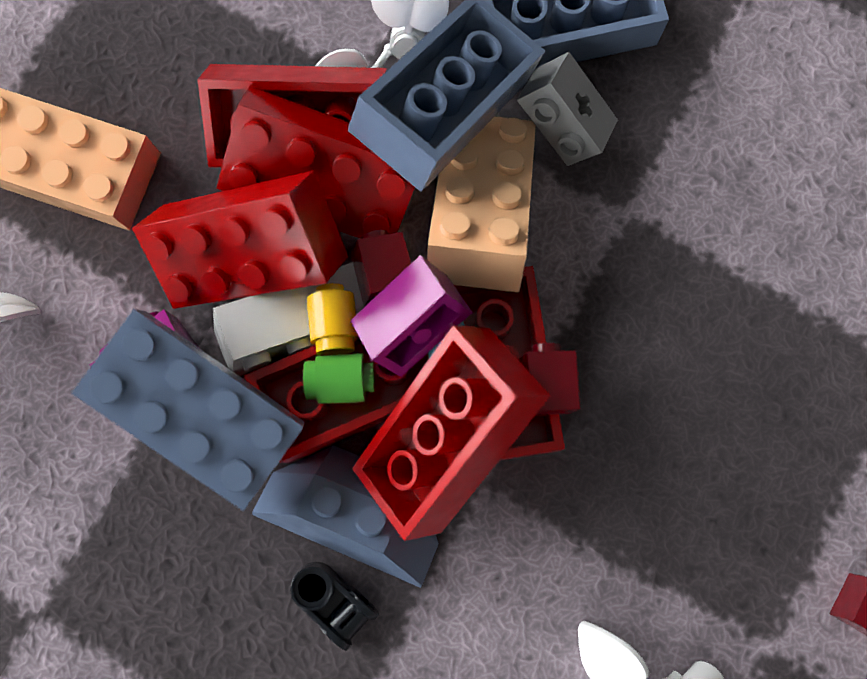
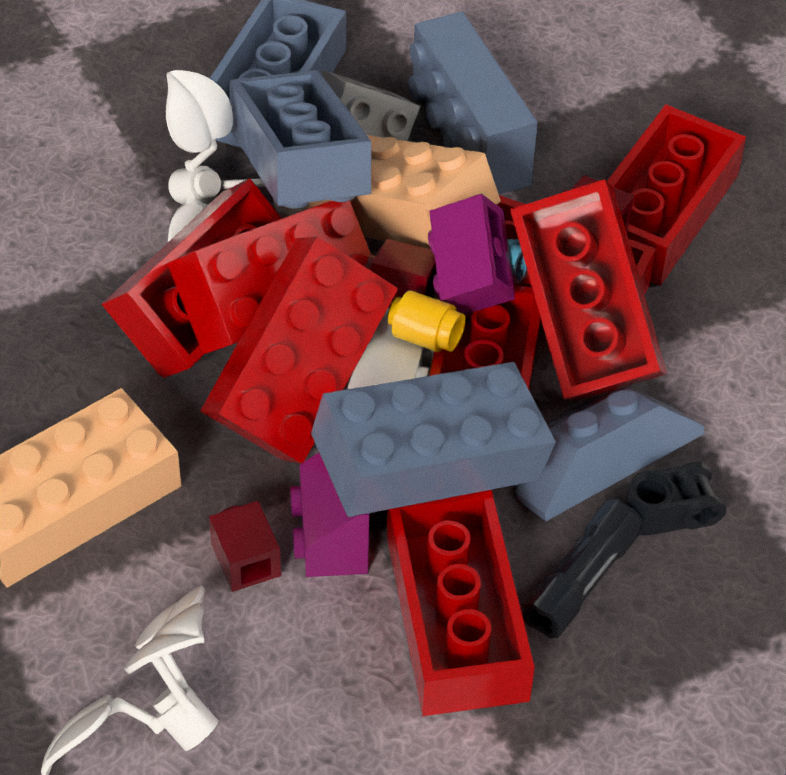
camera: 60 degrees left, 30 degrees down
(86, 313) = (245, 545): none -> dark red brick
(103, 515) = (459, 605): none -> red brick
(221, 569) = (562, 593): none -> black axle
(338, 378) = (482, 340): bright green brick -> none
(641, 186) = (472, 99): none -> sand blue brick
(664, 409) = (676, 181): none -> red brick

